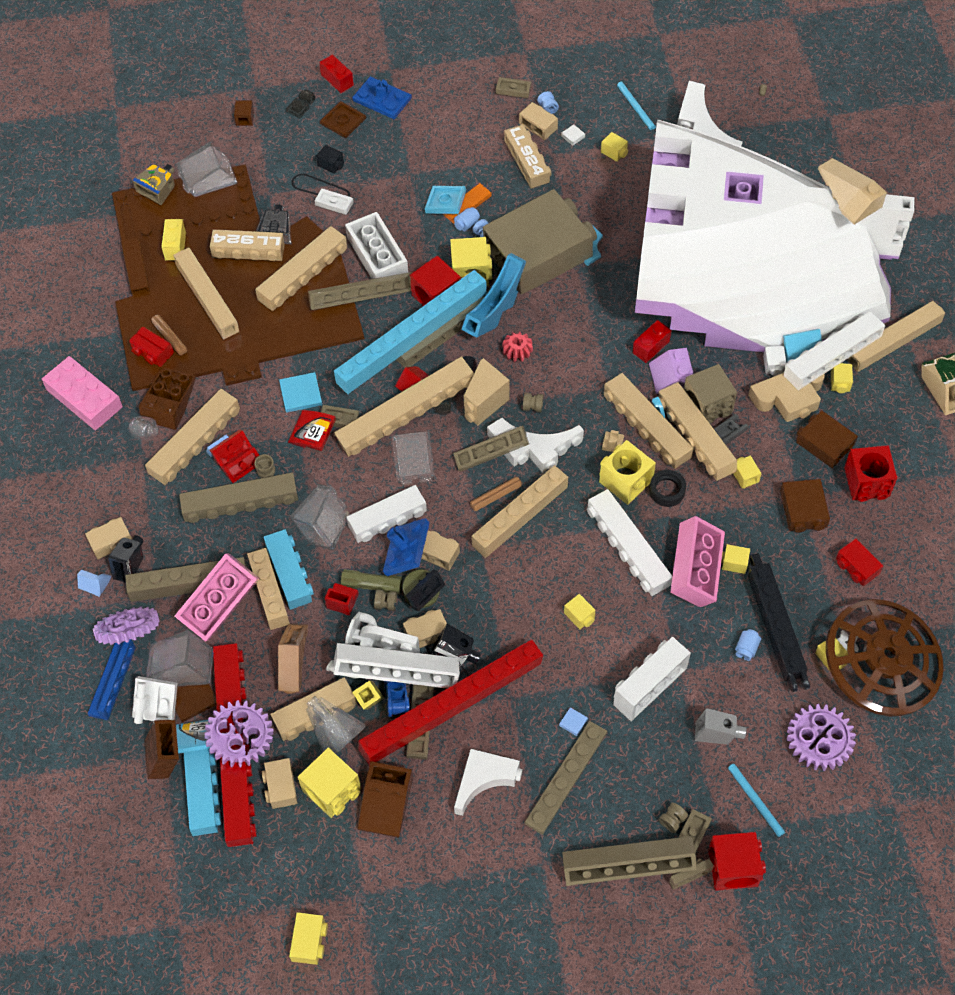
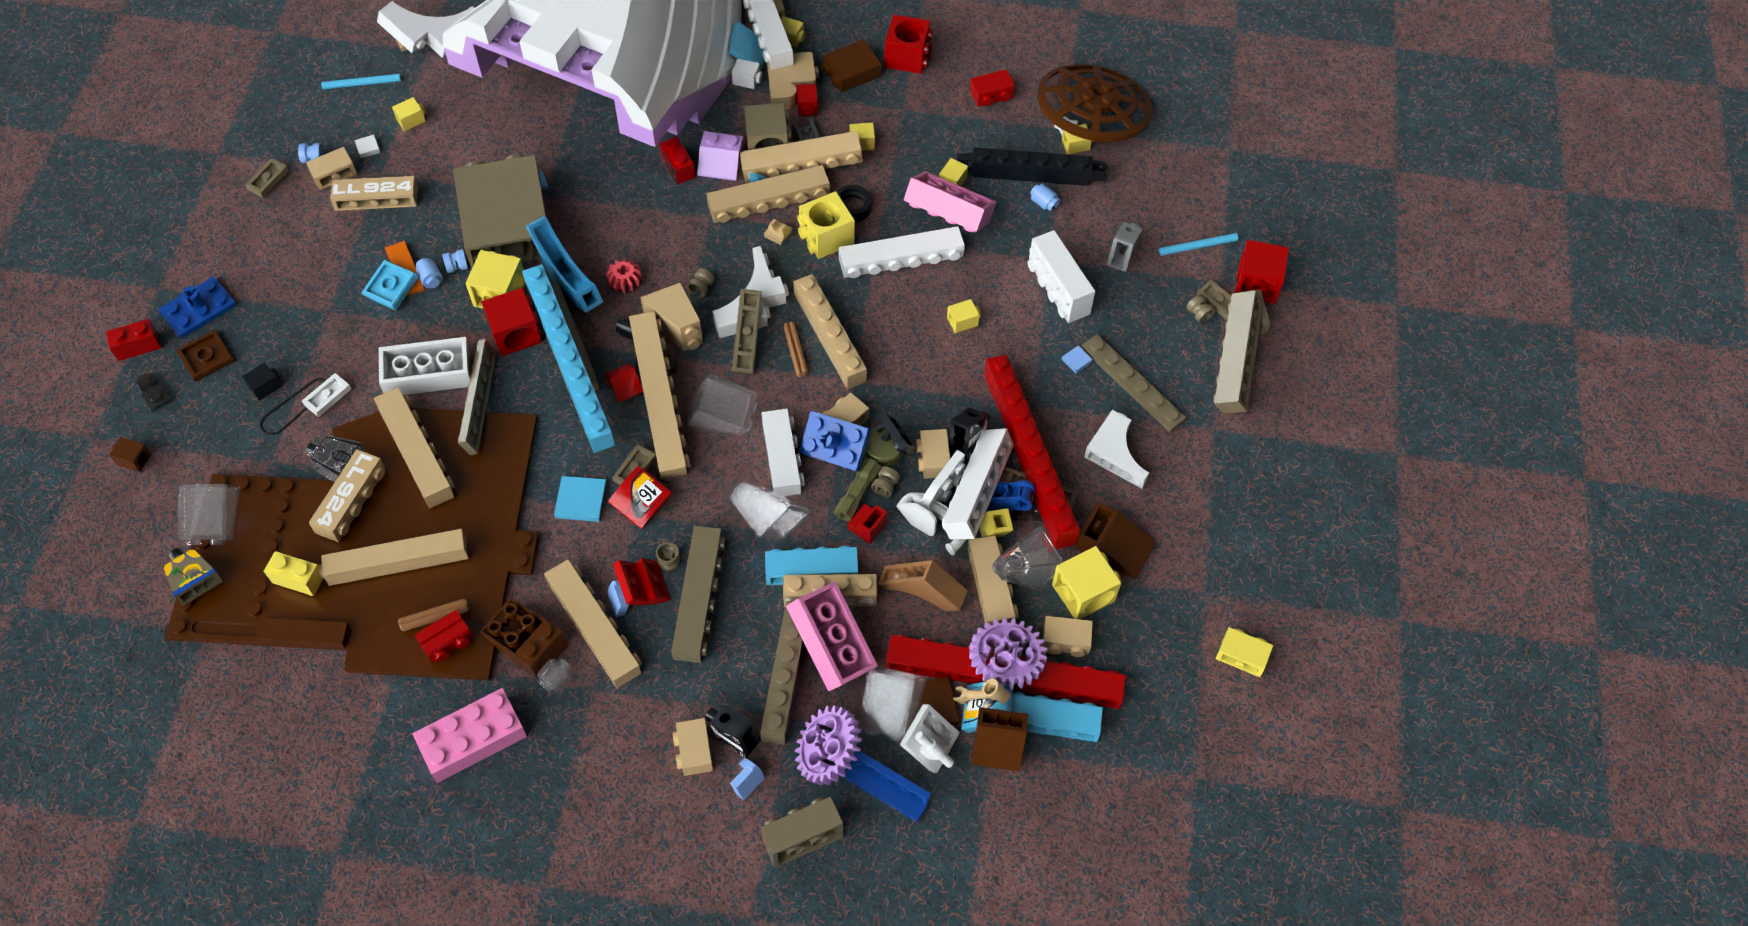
camera: 75 degrees left, 0 degrees up
(53, 629) = (802, 831): none -> dark tan brick
(196, 727) = (991, 690): none -> tan brick
(766, 415) = (807, 99): none -> red brick
(805, 505) = (916, 106): reddish brown brick -> none
(836, 749) = (1155, 175): lavender gear -> none

